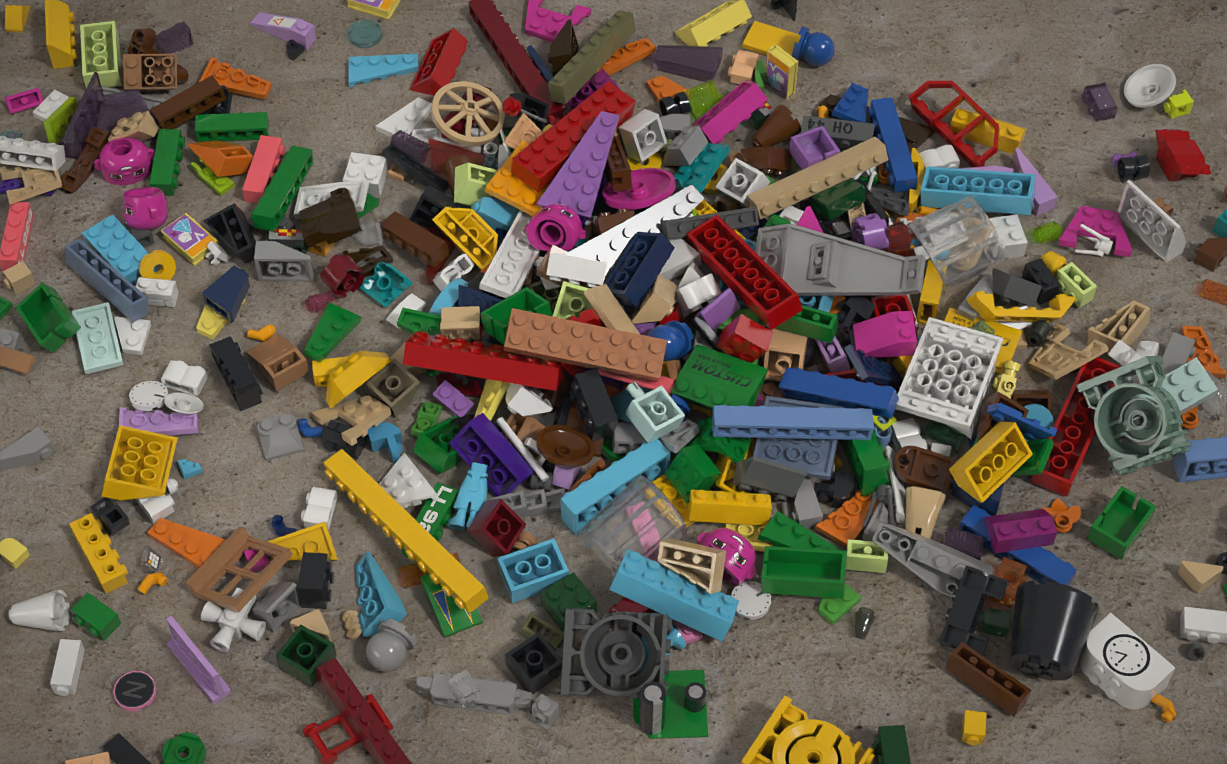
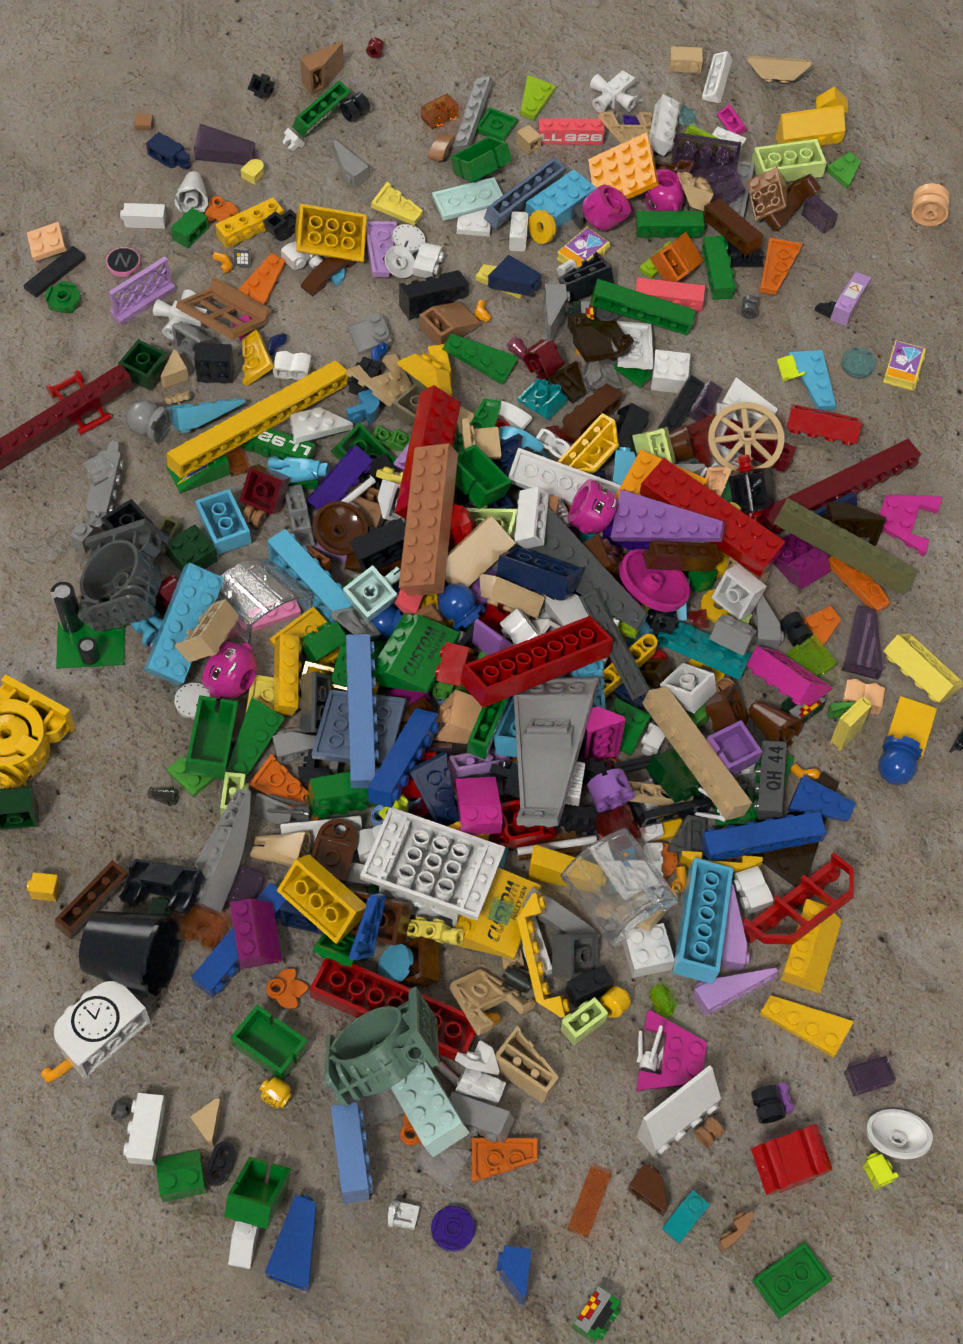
camera: 85 degrees right, 5 degrees up
(72, 585) = (221, 211): none -> orange plate
(91, 188) = (626, 167): none -> light orange plate
(93, 409) = (394, 204): none -> light yellow wing
(107, 12) = (844, 169): none -> bright green wing
(190, 480) = (323, 272): none -> reddish brown slope
(287, 106) = (750, 306): none -> dark grey wheel
(373, 85) = (788, 368): none -> neon yellow bracket
(1058, 135) = (811, 1025): none -> yellow wing
(1166, 520) = (275, 1093): none -> yellow head

